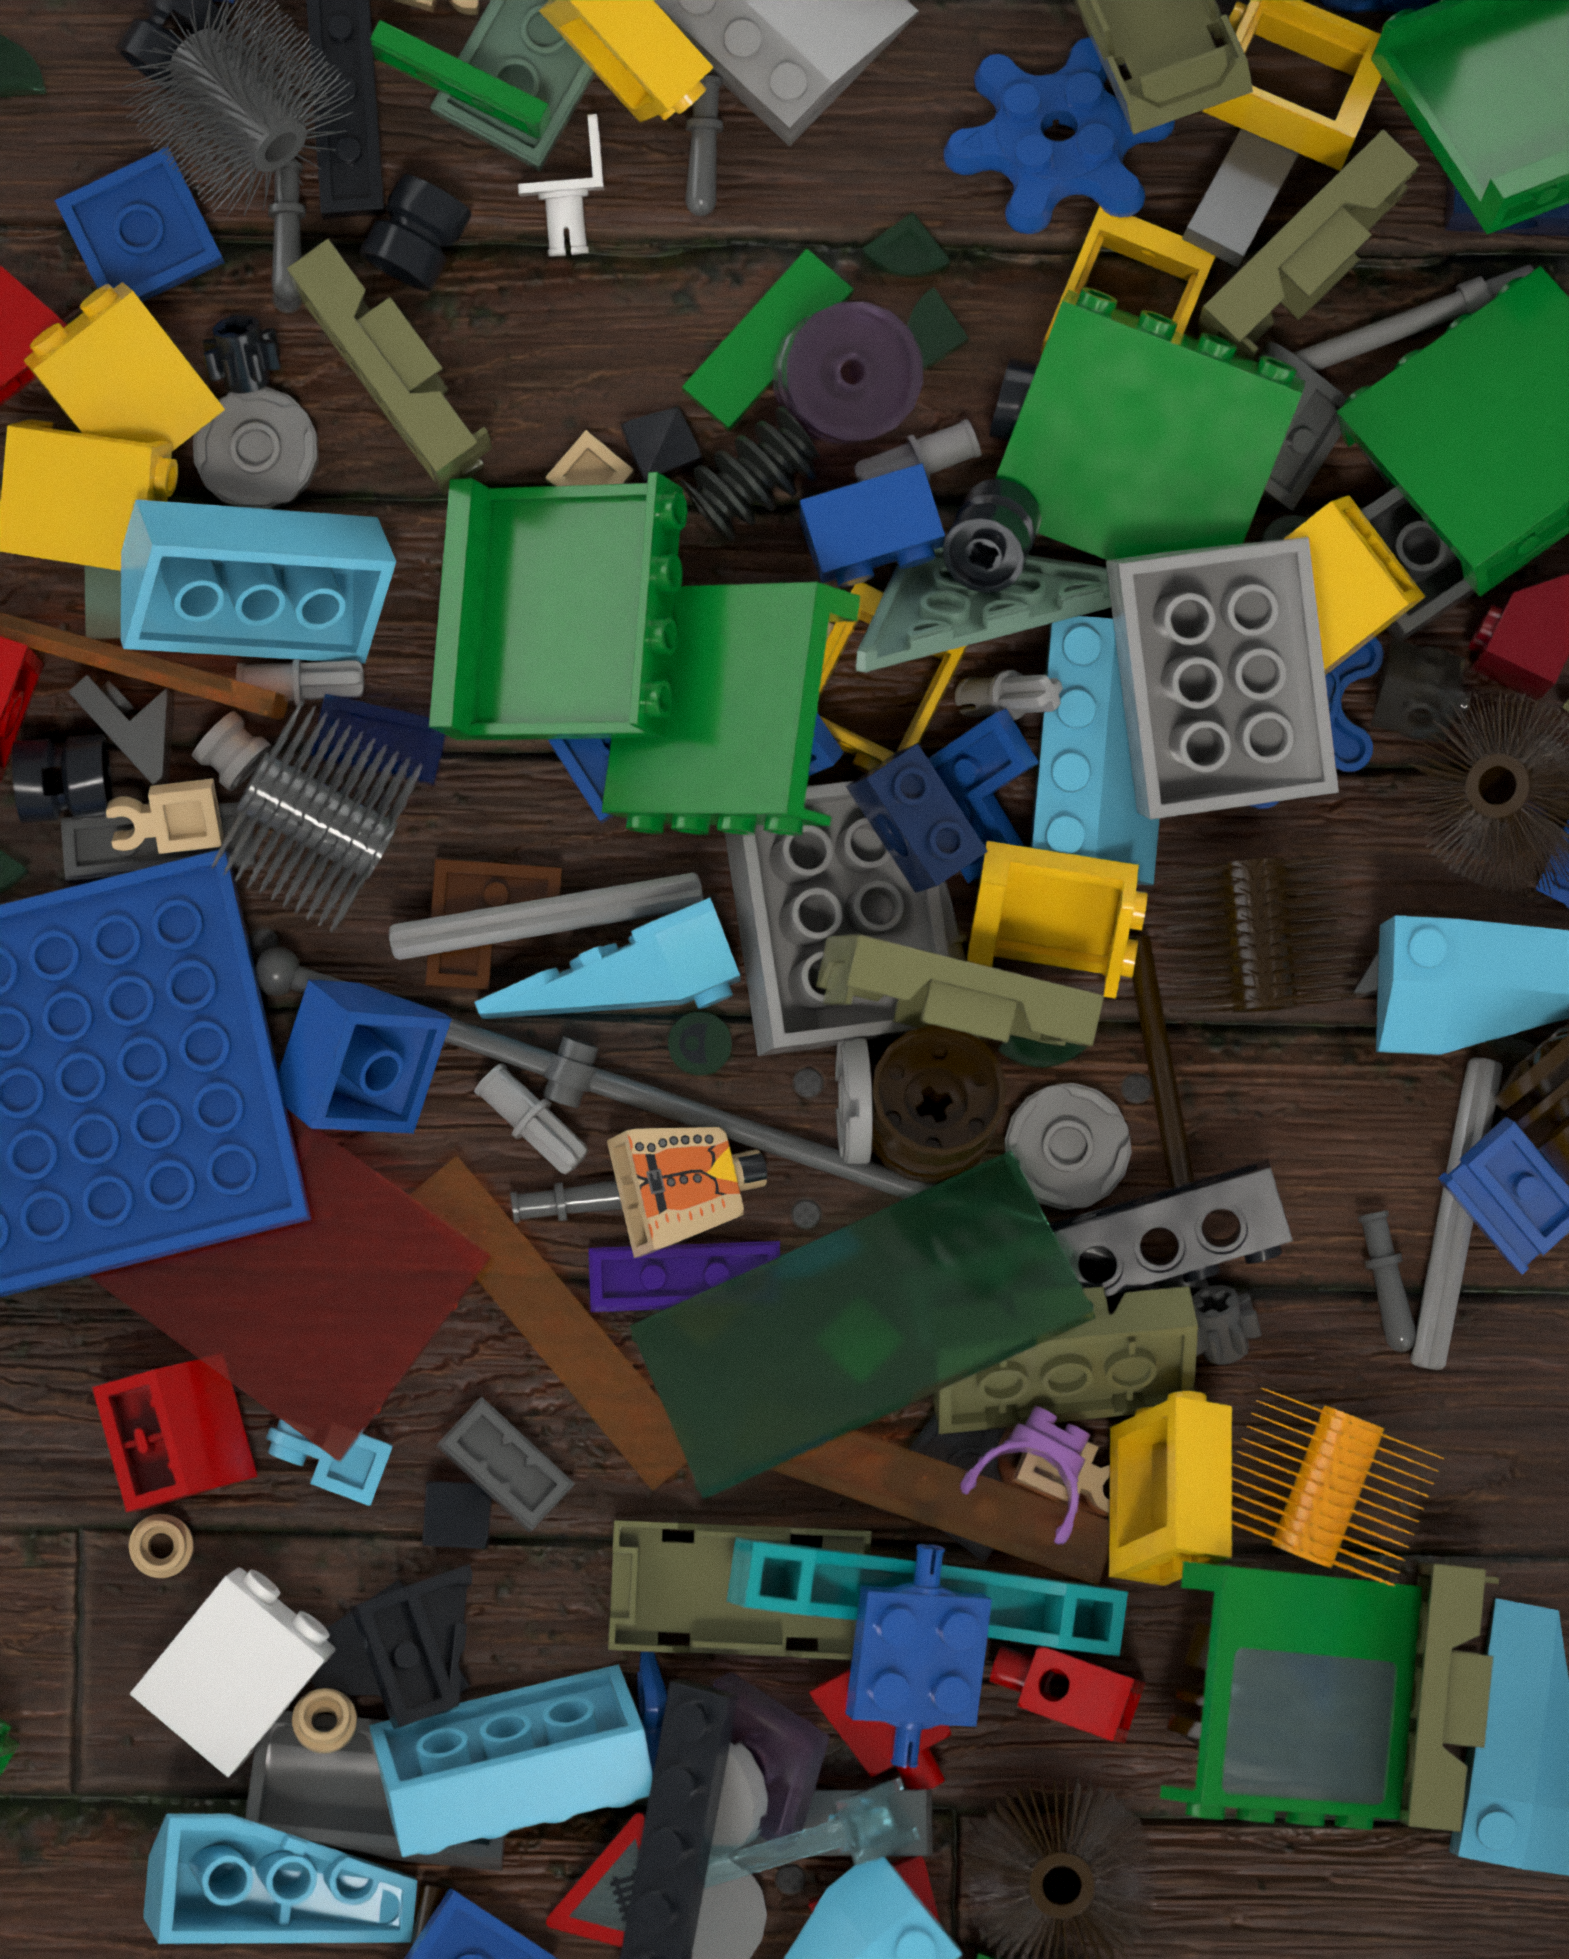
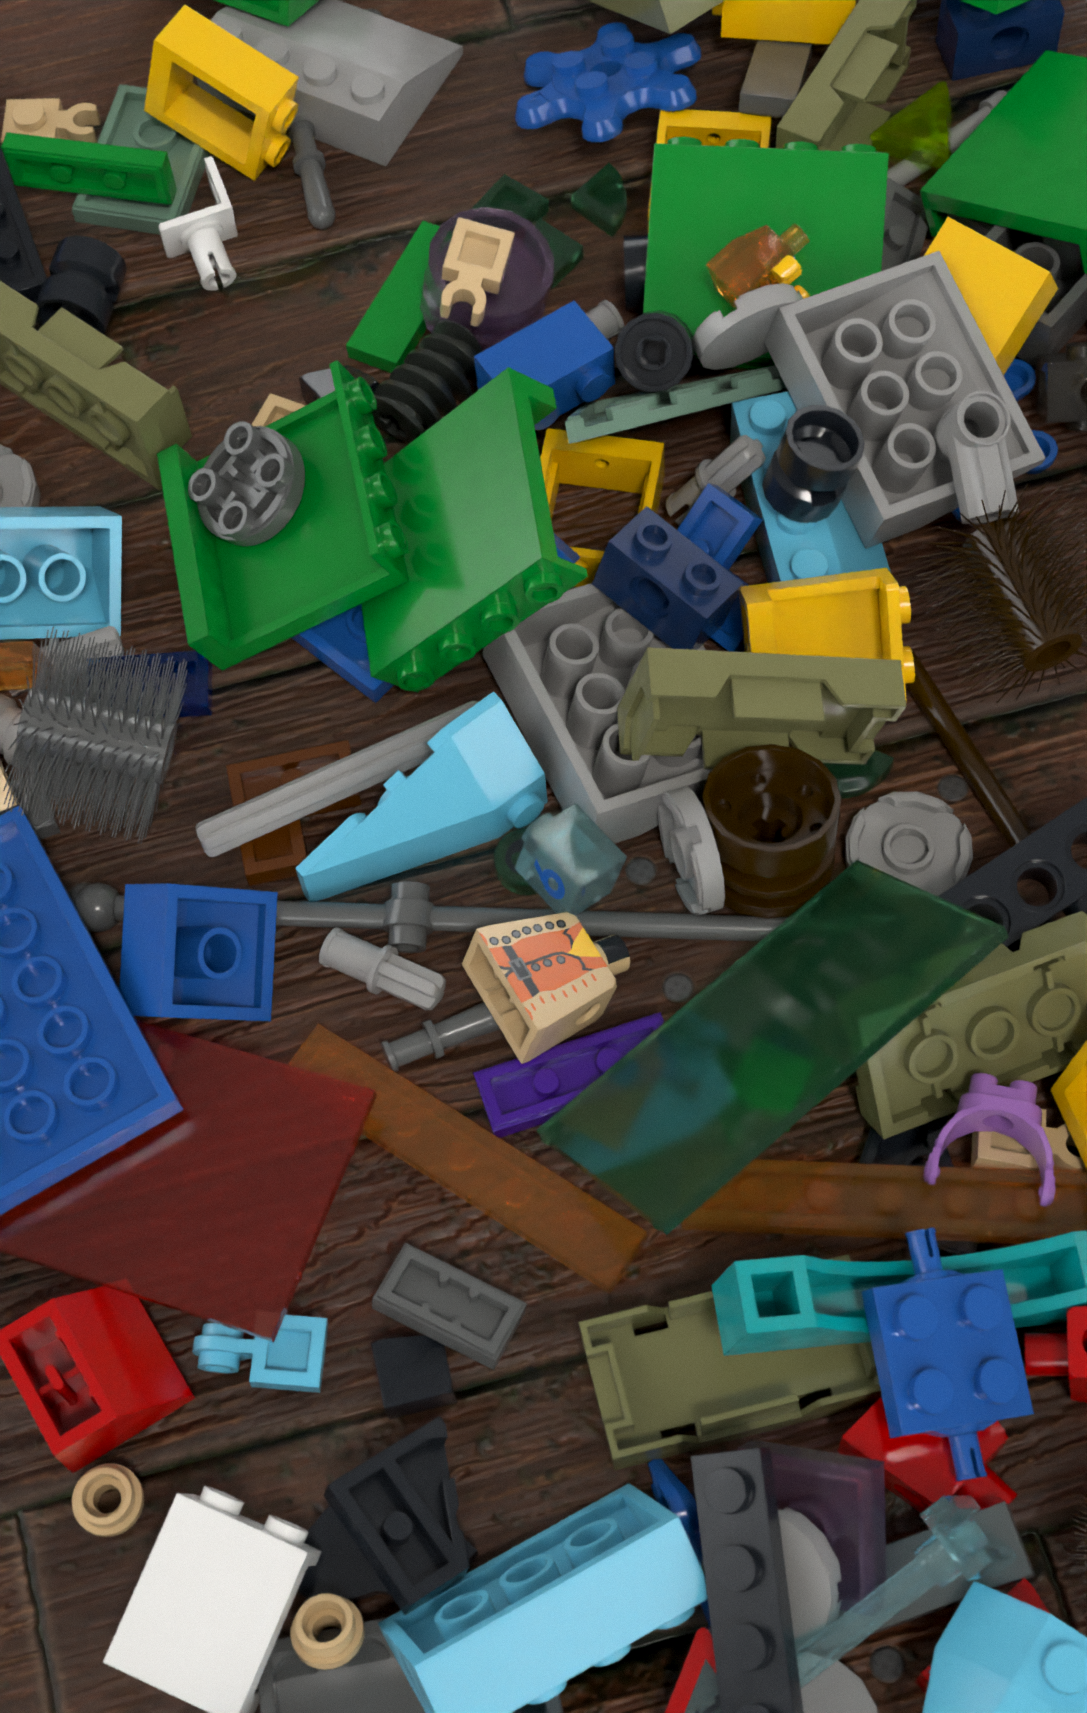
camera: 10 degrees left, 20 degrees down
(534, 557) = (249, 485): none -> dark grey tile
(735, 1073) = (569, 860): none -> clear light blue brick
(836, 378) = (474, 265): none -> tan plate
(1011, 276) = (602, 200): none -> clear green tile
(1092, 551) = (741, 334): none -> light grey tile
(1098, 743) = (813, 463): none -> black wheel
(1124, 486) = (758, 261): none -> clear orange piece
(1261, 797) = (979, 464): none -> light grey piece
(1379, 303) = (919, 130): none -> clear neon green tile

